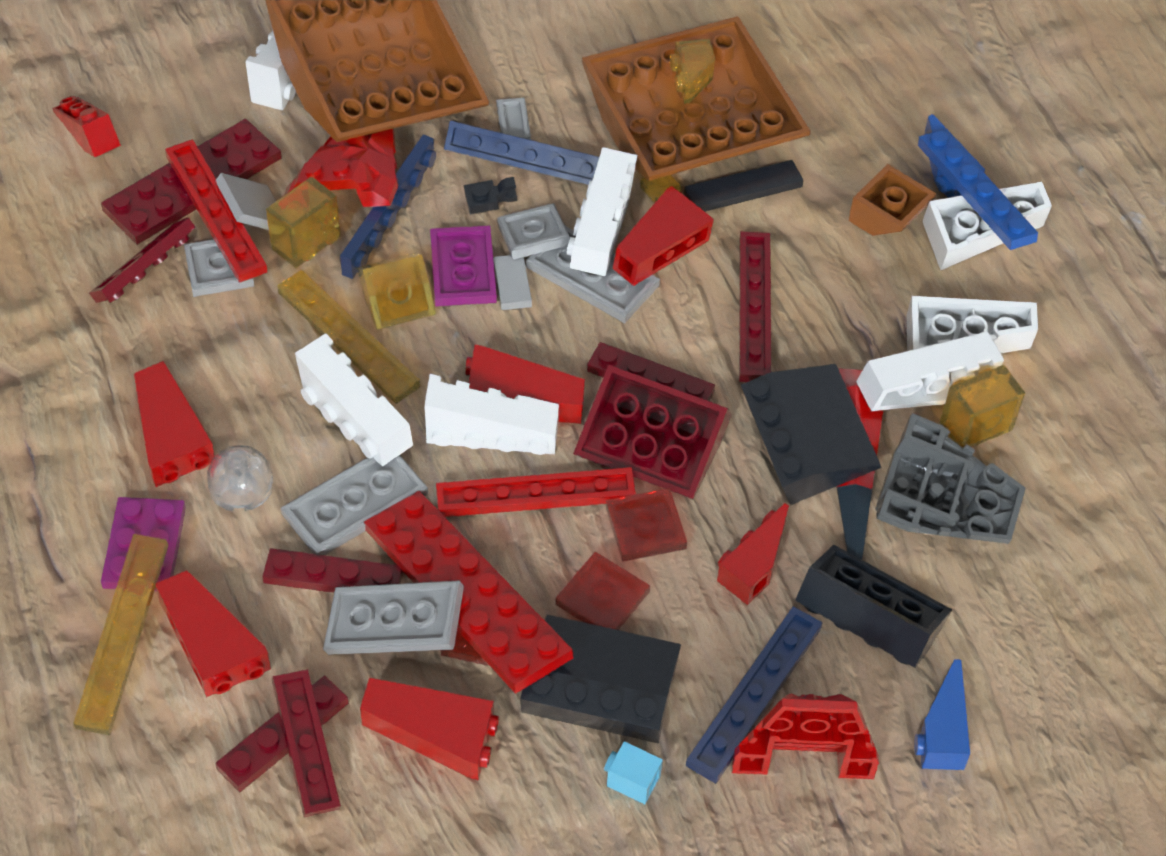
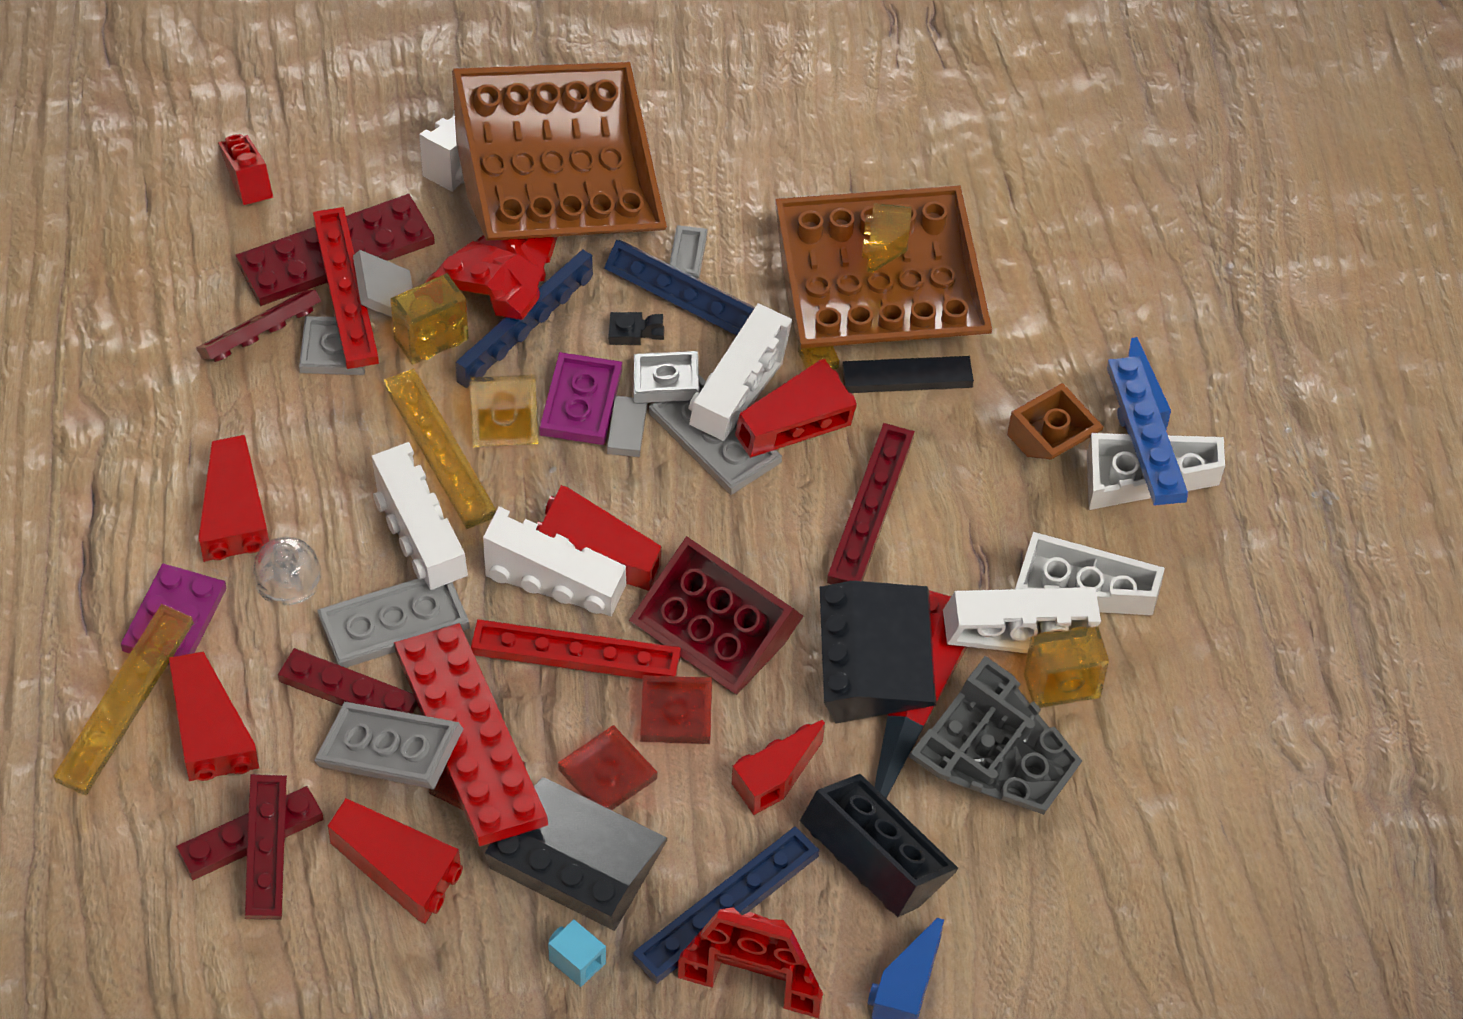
camera: 15 degrees right, 0 degrees up
(609, 355) = (737, 554): dark red plate -> none

